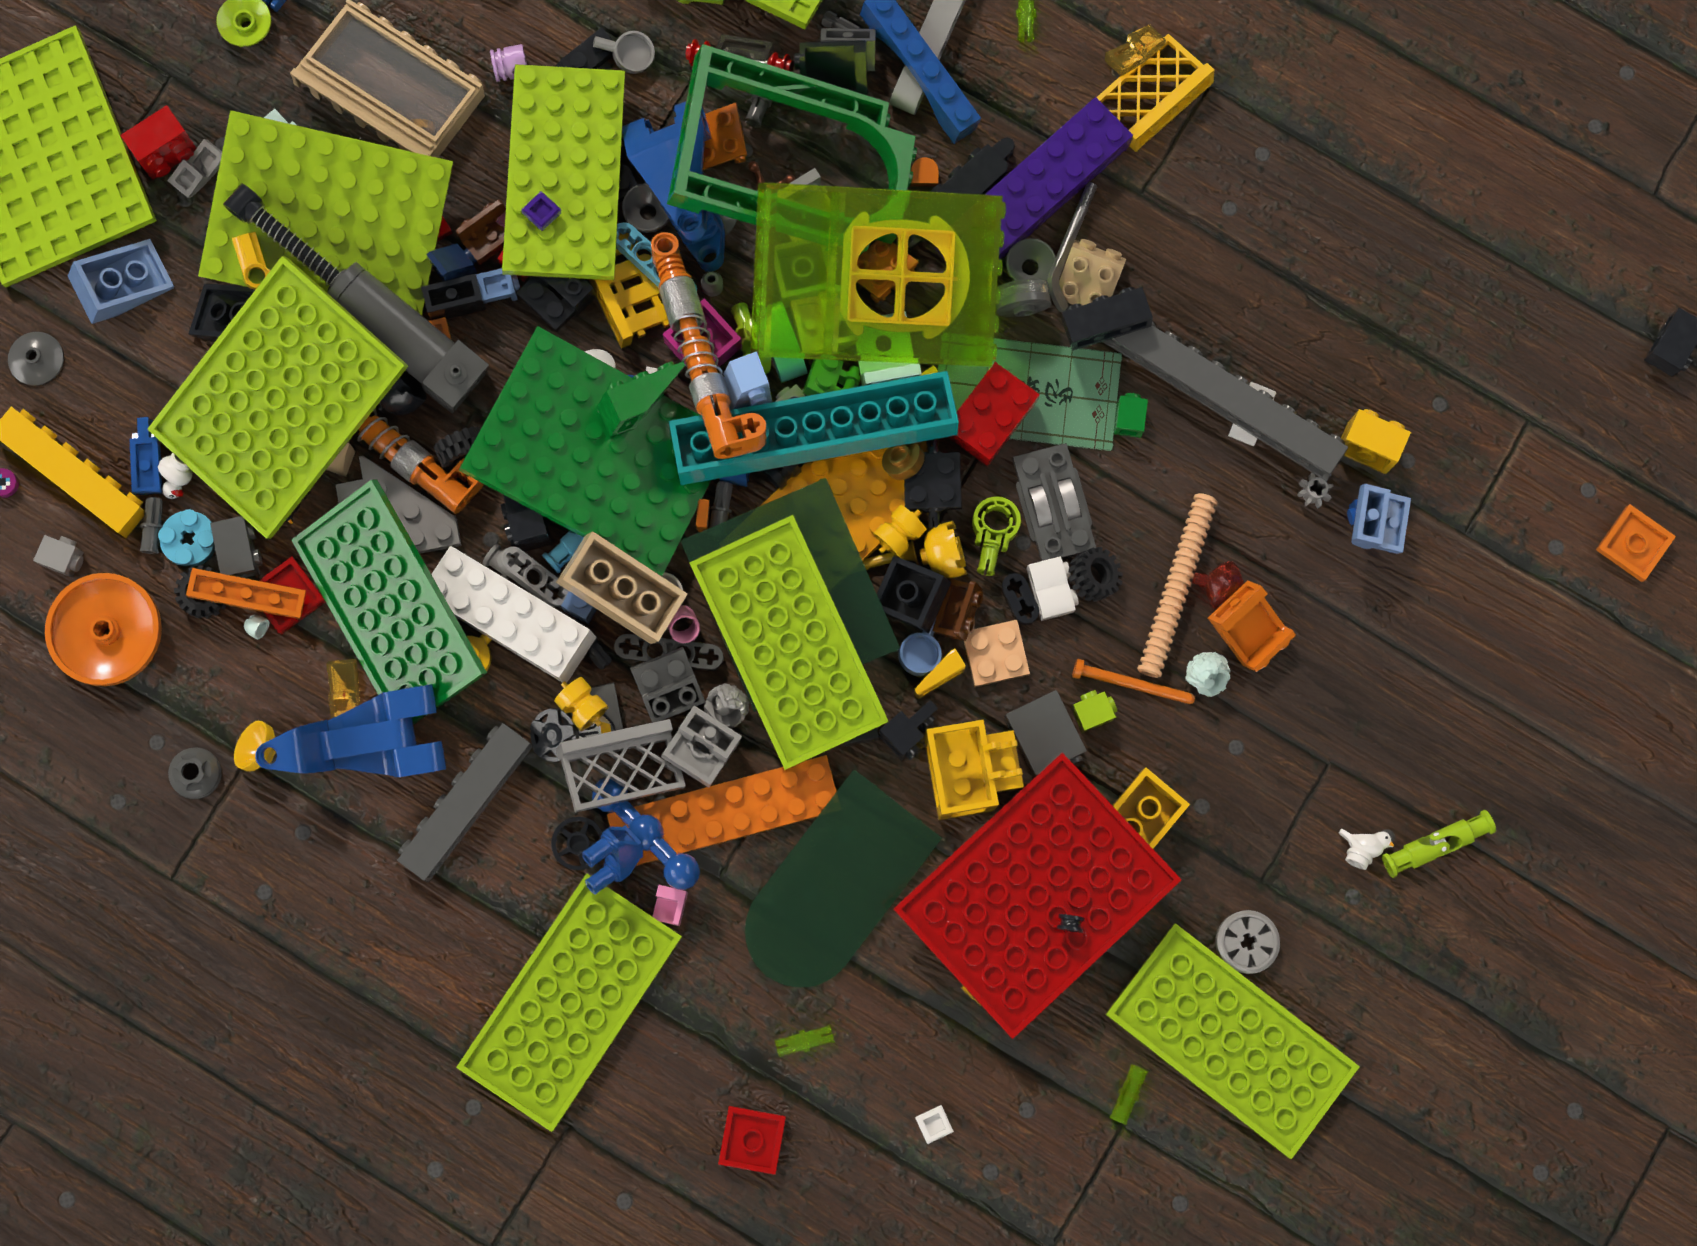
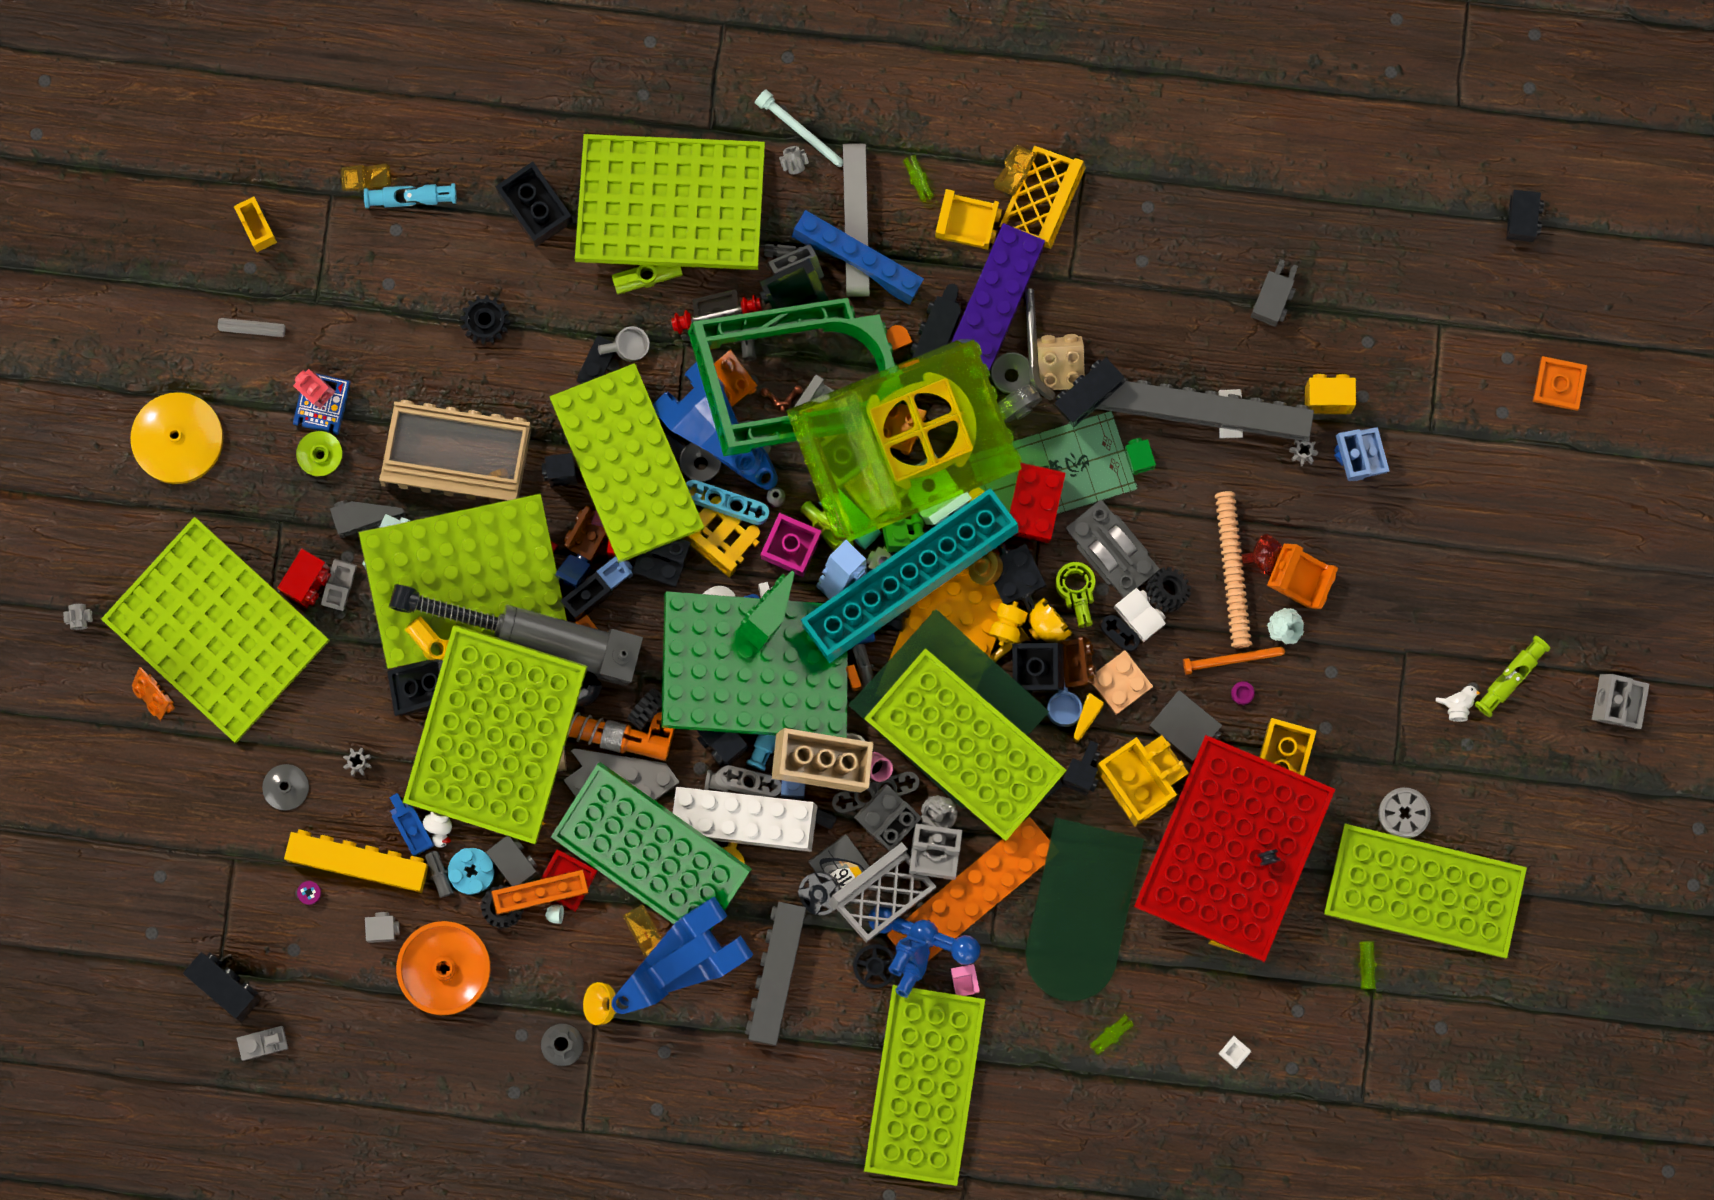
camera: 20 degrees left, 0 degrees up
(117, 358) = (355, 755): none -> light grey gear
(119, 280) = (322, 698): medium blue slope -> none
(251, 100) = (358, 516): none -> dark grey slope
(489, 149) = (560, 470): none -> black brick
(505, 61) = (539, 395): lavender piece -> none
(541, 211) = (627, 502): dark purple tile -> none
(577, 700) = (829, 860): yellow wheel -> none
(706, 385) = (817, 579): orange piece -> none
(752, 1140) = (1106, 1124): red plate -> none
(1058, 80) = (967, 220): none -> yellow panel
(1094, 710) = (1213, 692): lime brick -> none
(1126, 726) = (1242, 693): none -> magenta tile
(1358, 307) = (1274, 295): none -> dark grey hinge
(1549, 926) = (1620, 701): none -> light grey brick

